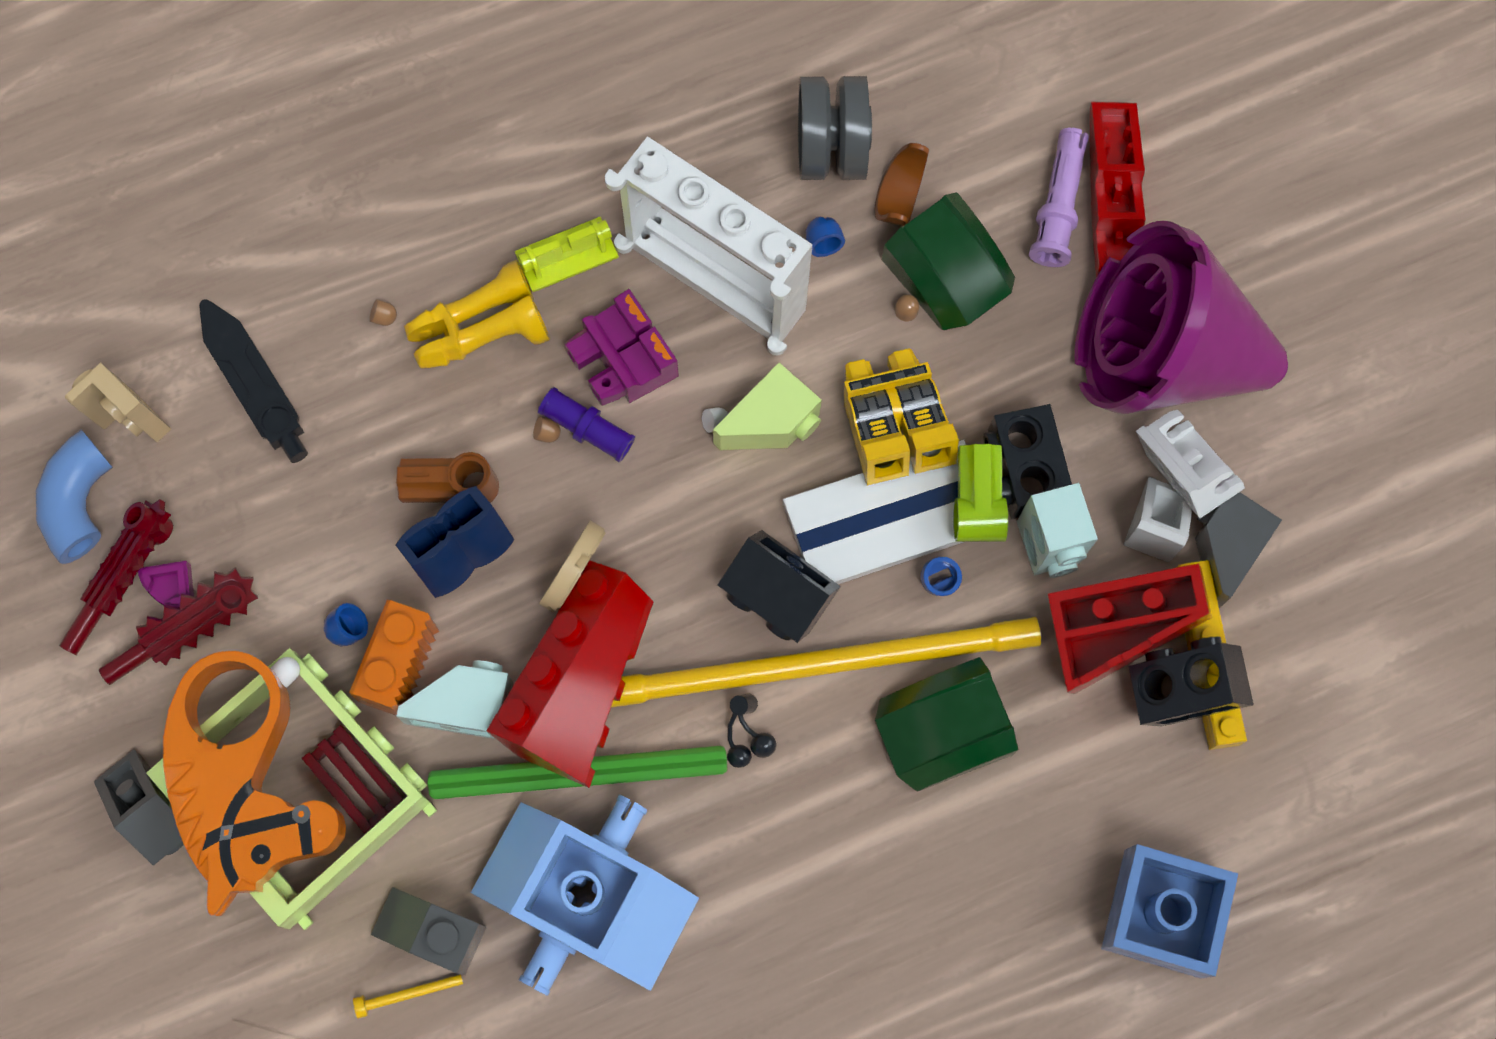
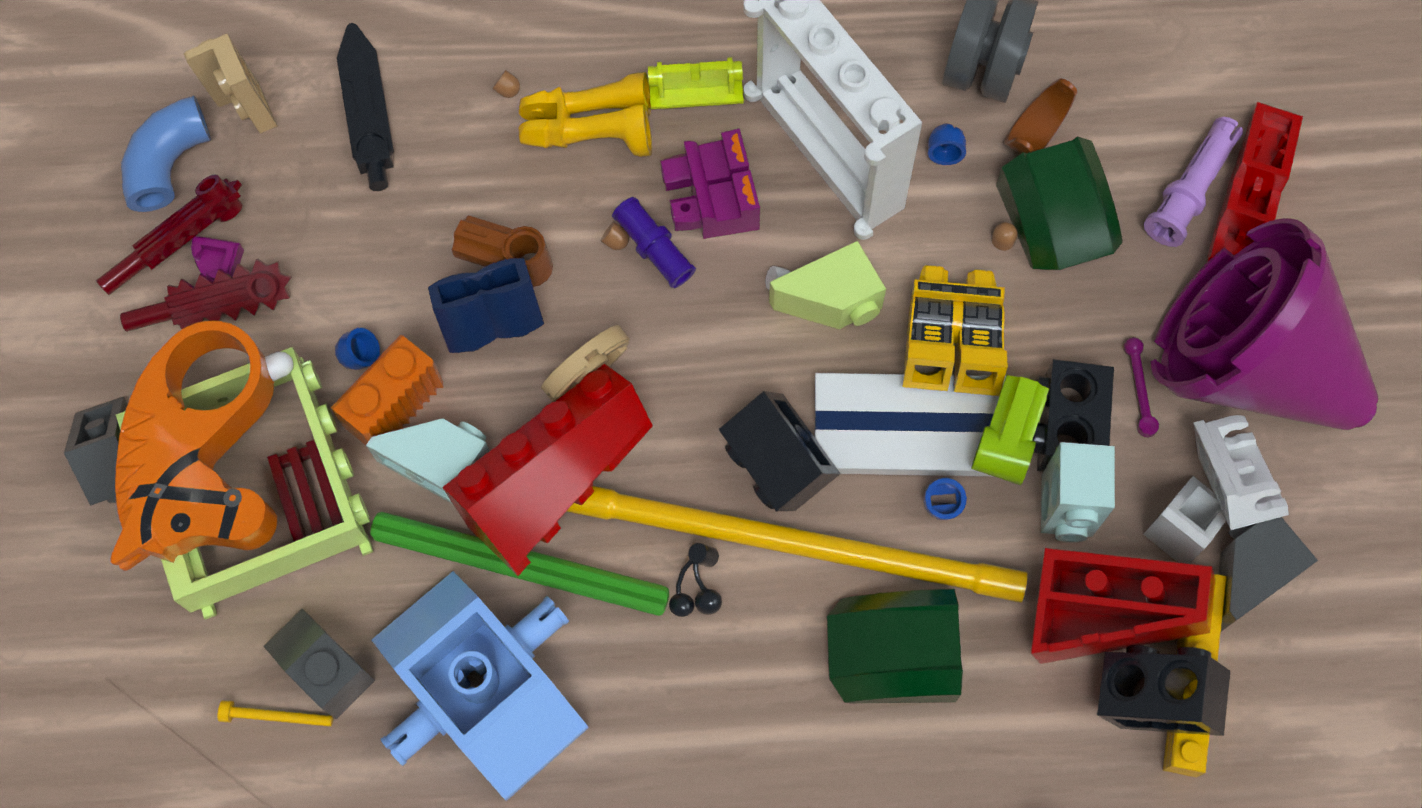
camera: 25 degrees right, 5 degrees down
(1094, 442) = (1148, 424): none -> magenta hinge

